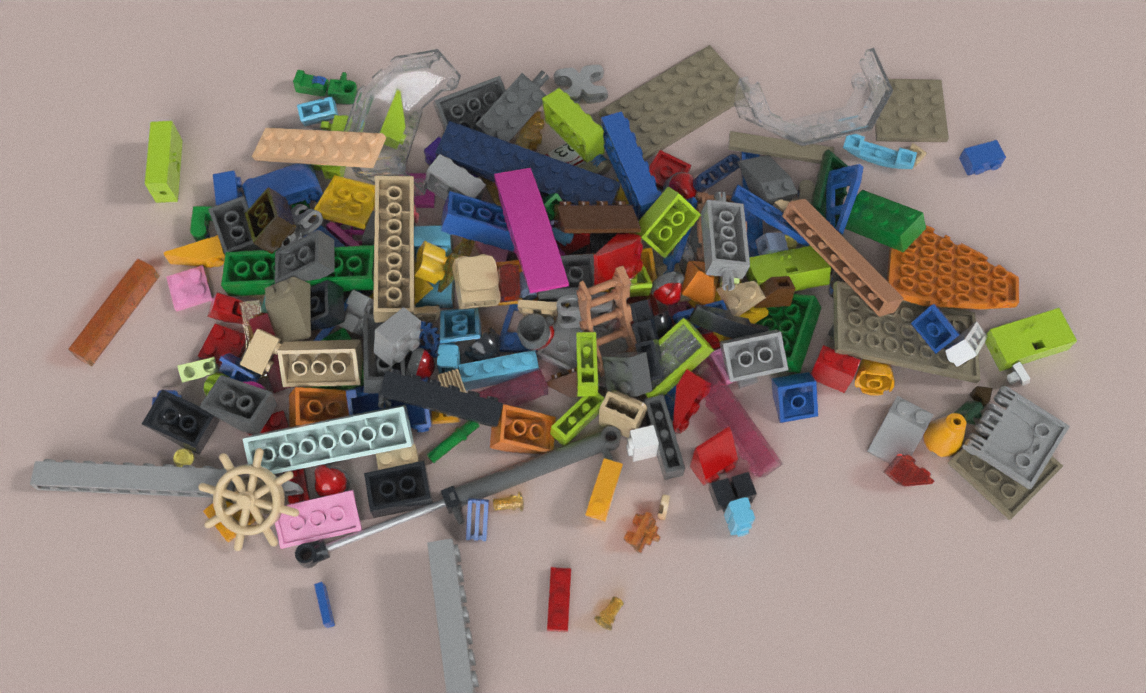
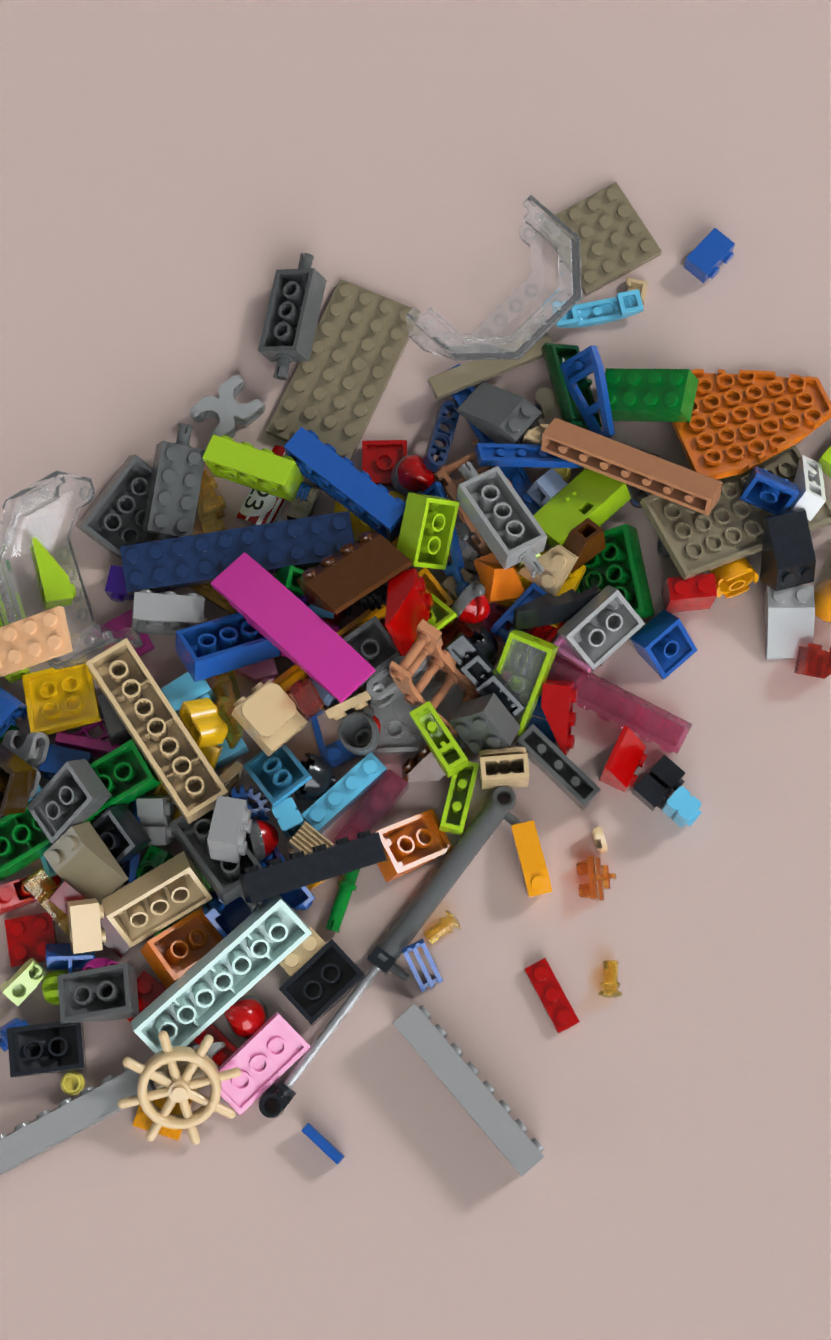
camera: 25 degrees left, 10 degrees up
(642, 443) = (541, 787): white brick -> none
(661, 48) = (292, 315): none -> dark grey brick
(927, 377) = (787, 551): none -> black slope

